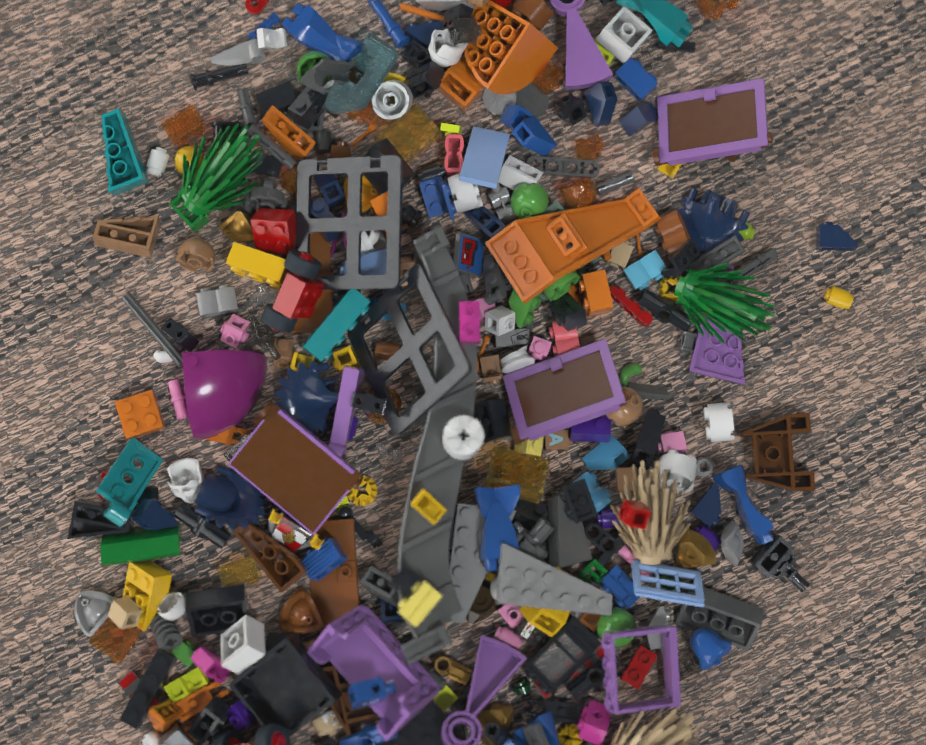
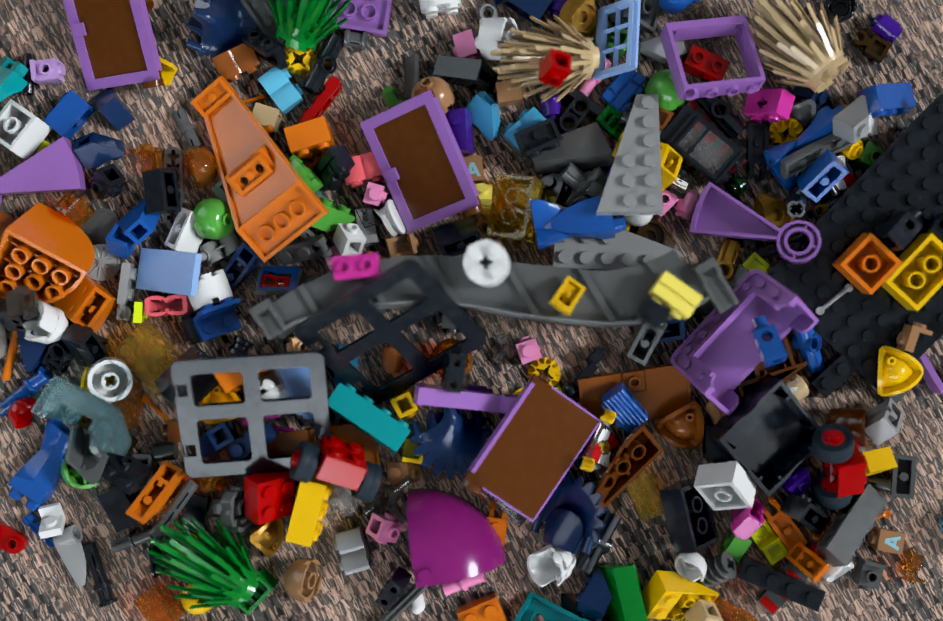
camera: 90 degrees left, 5 degrees up
(371, 19) = (19, 412): none -> red hair
(385, 476) = (527, 350): none -> bright pink brick
(469, 117) = (125, 291): none -> light grey hinge
(555, 154) = (161, 191): none -> black brick
(674, 70) = (53, 75): none -> lavender brick

